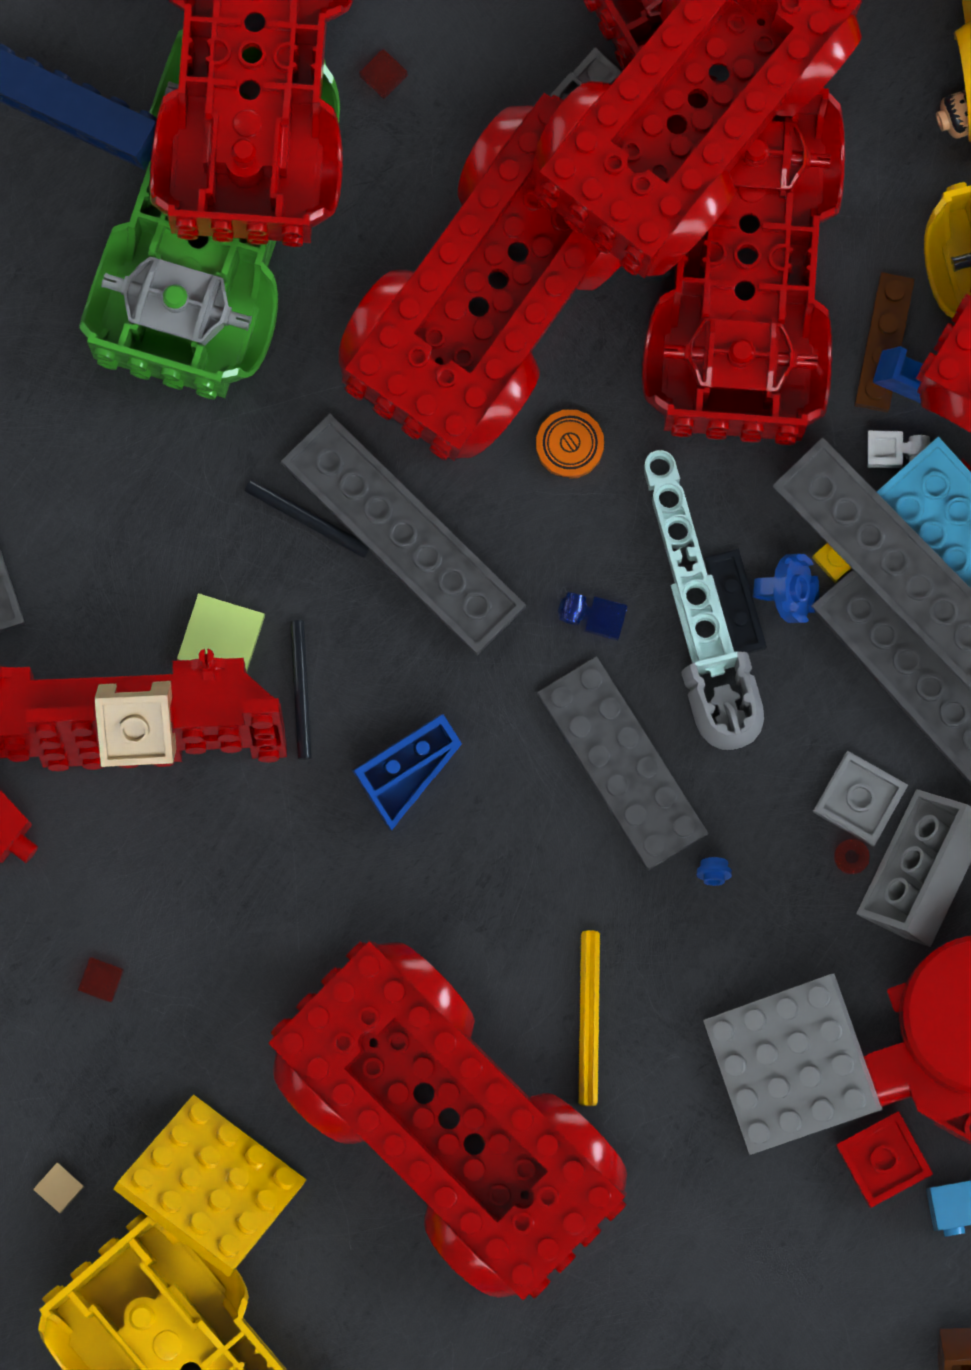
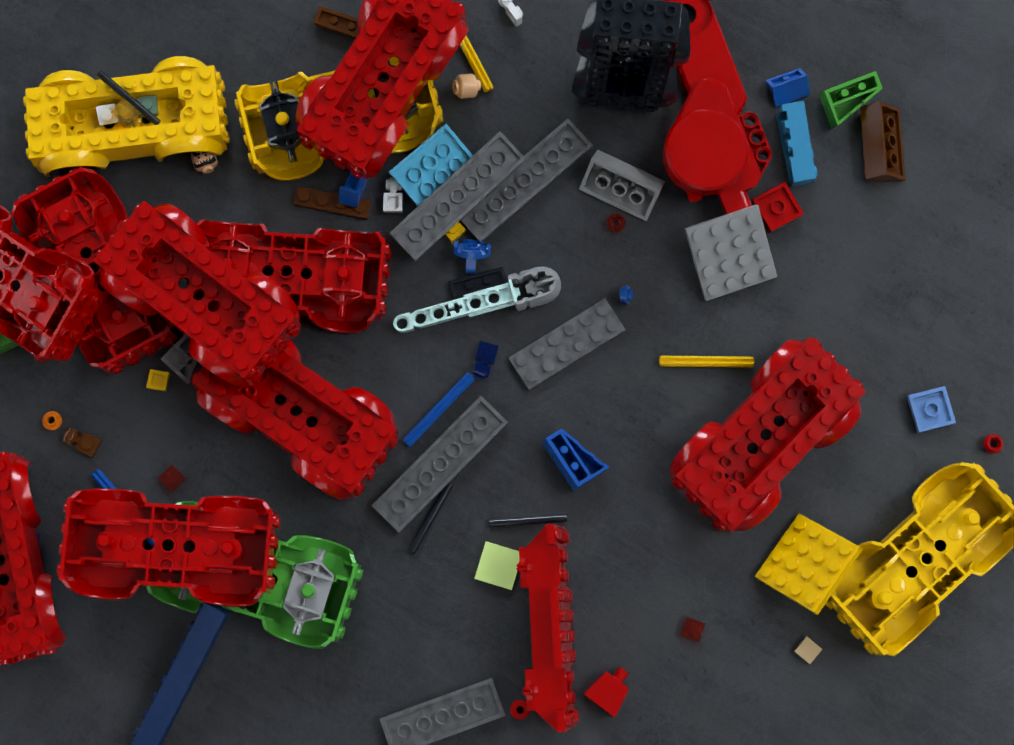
camera: 90 degrees left, 0 degrees up
(135, 725) = (563, 605): tan panel -> none
(502, 532) = (438, 409): none -> blue axle
(556, 45) = (158, 380): none -> yellow plate
(570, 443) = (388, 372): orange tile -> none
(860, 798) = (584, 218): light grey tile -> none

